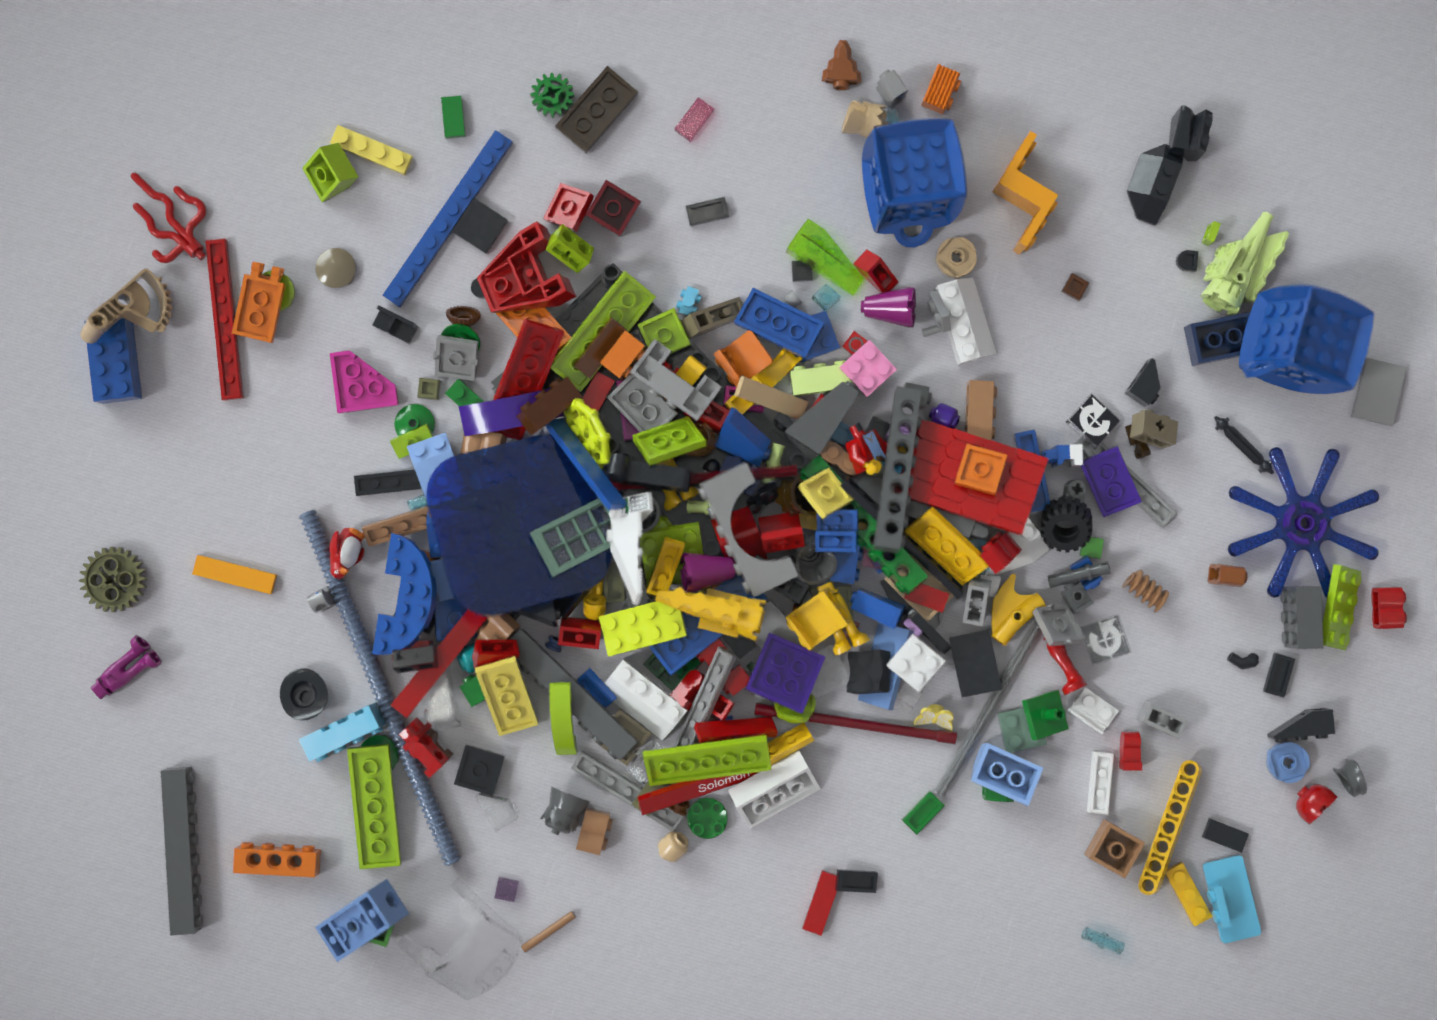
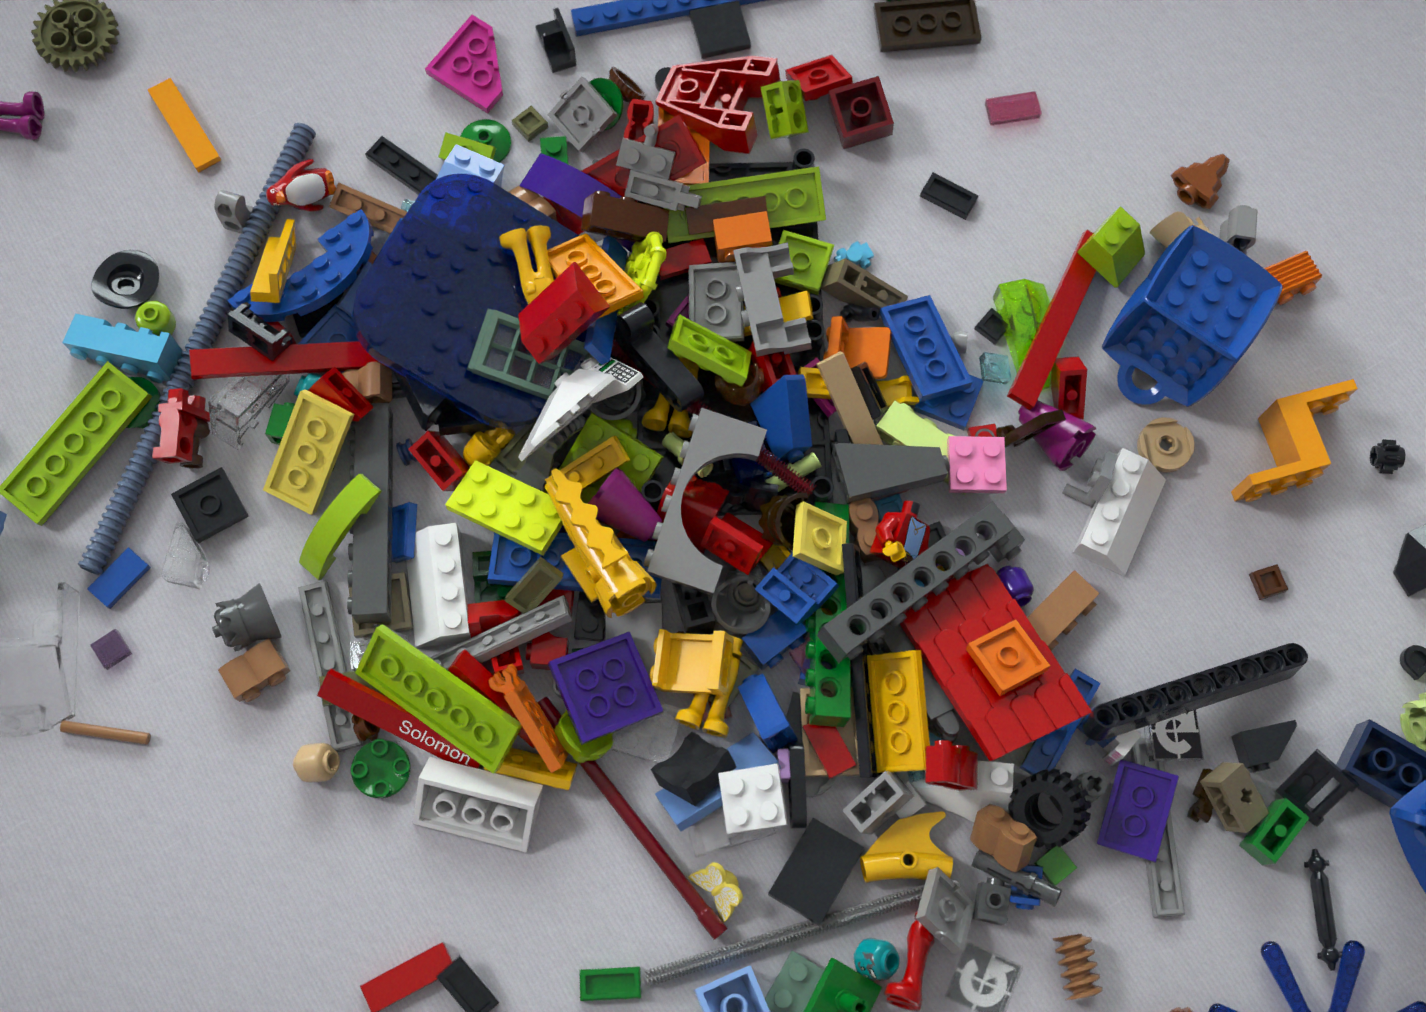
camera: 40 degrees right, 15 degrees down
(344, 701) = (155, 317): none -> lime head
(381, 612) = (275, 266): none -> yellow fence
(471, 851) = (118, 578): none -> blue tile
(496, 335) = (640, 115): none -> red brick
(528, 360) = (646, 156): none -> light grey plate
(543, 491) = (516, 240): none -> yellow piece
(554, 371) = (660, 191): none -> light grey hinge
(566, 460) = (601, 270): none -> light orange tile
(576, 503) = (560, 314): none -> red slope
(699, 656) = (534, 586): none -> olive tile
(723, 332) = (859, 313): none -> black arm
(764, 726) = (530, 717): none -> orange tile
(771, 378) = (869, 389): none -> black tile
(829, 161) = (1115, 247): none -> lime slope
(836, 236) = (1053, 329): none -> red tile
(871, 332) = (1030, 429): none -> dark brown hinge
(1044, 680) = (876, 959): none -> teal head
(1053, 561) = (1003, 837): none -> medium nougat brick
(1081, 153) = (1387, 456): none -> black gear
(1088, 400) = (1194, 691): none -> black beam
(1184, 383) = (1310, 779): none -> black plate
(1189, 428) = (1274, 832): none -> green brick

